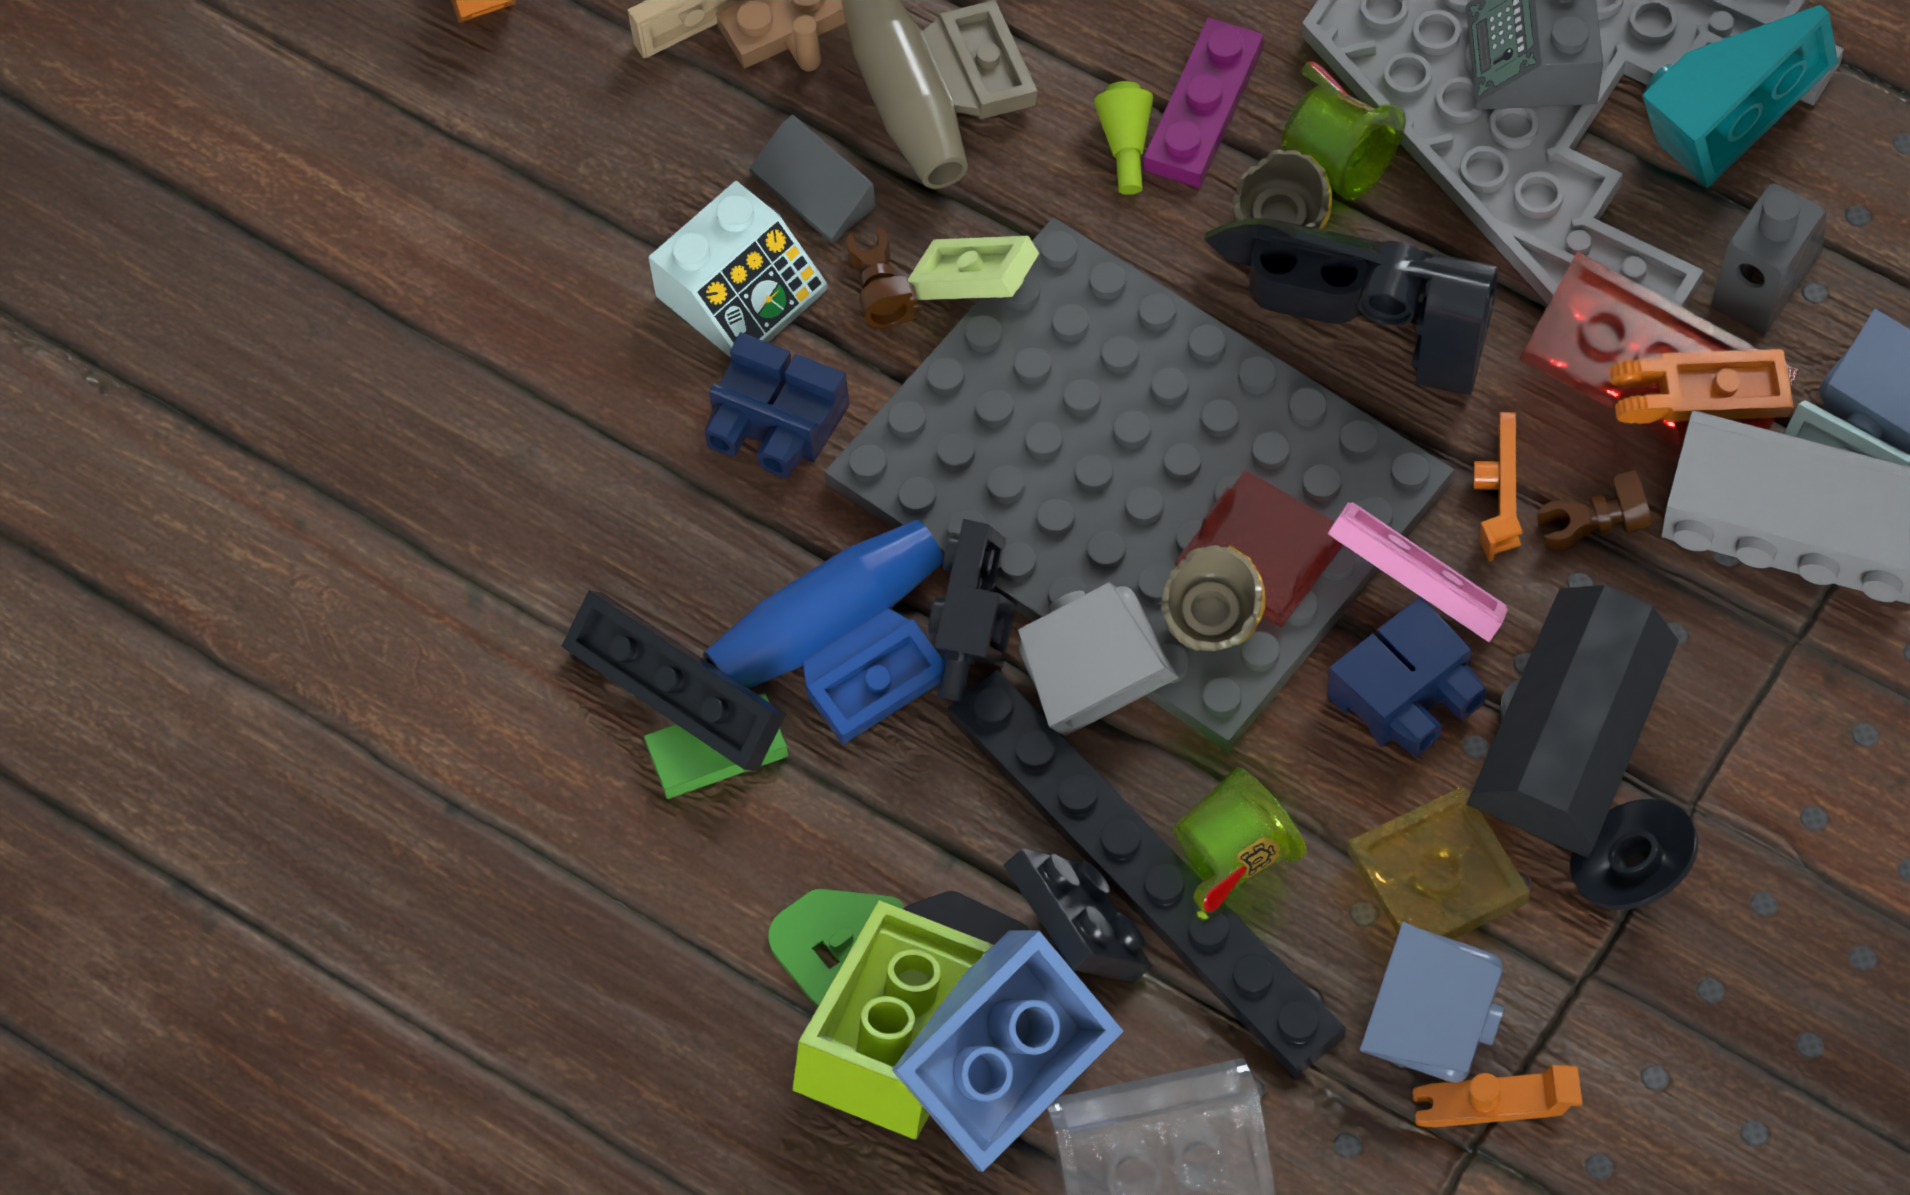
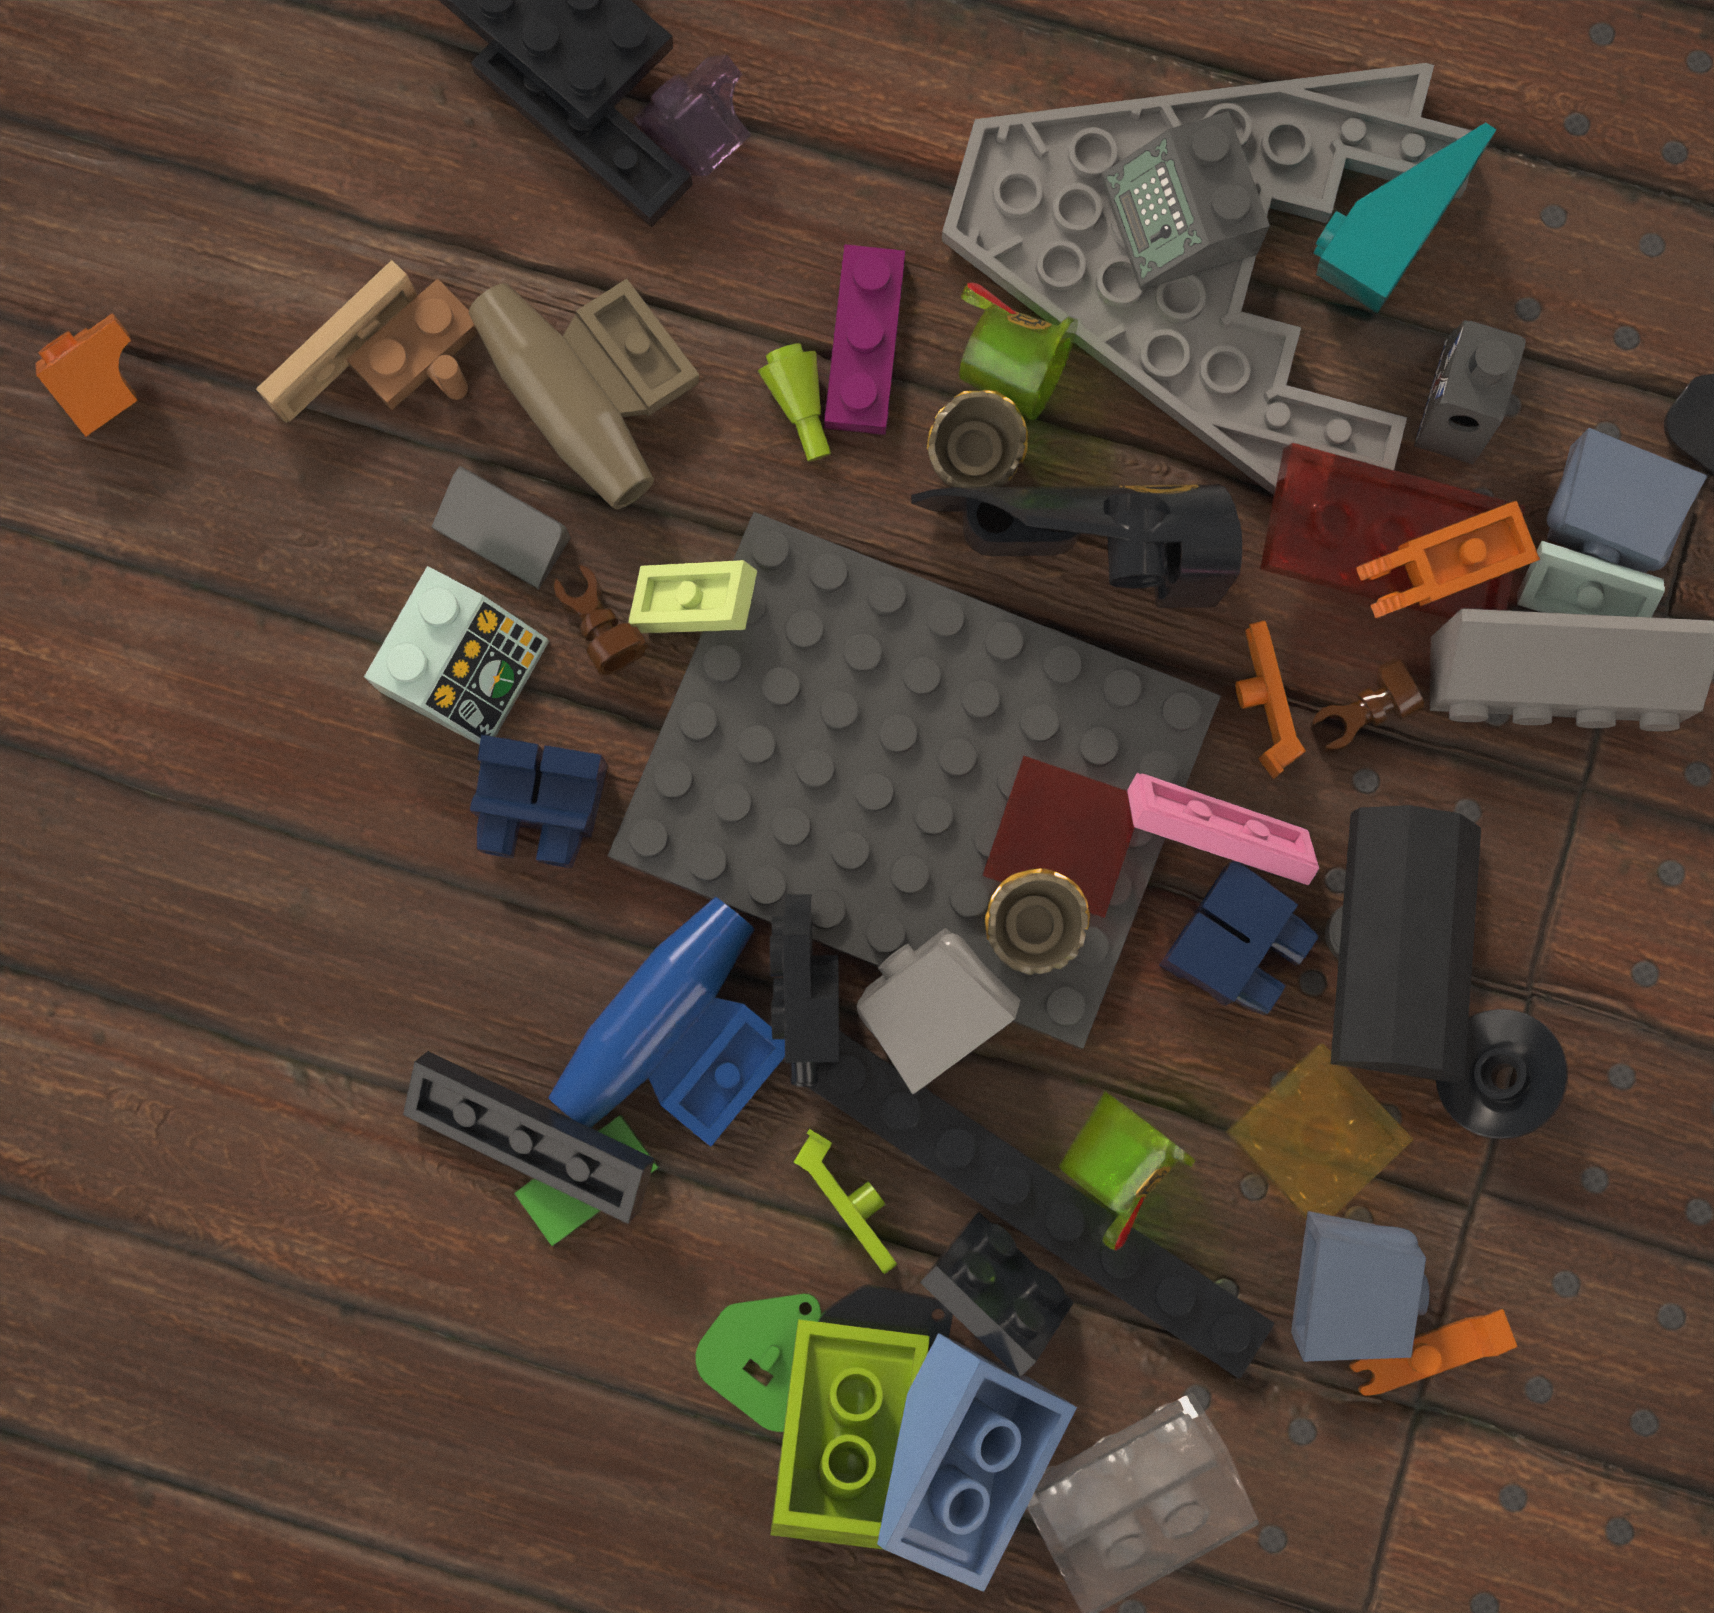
camera: 20 degrees left, 20 degrees up
(962, 830) = (852, 1208): none -> lime piece

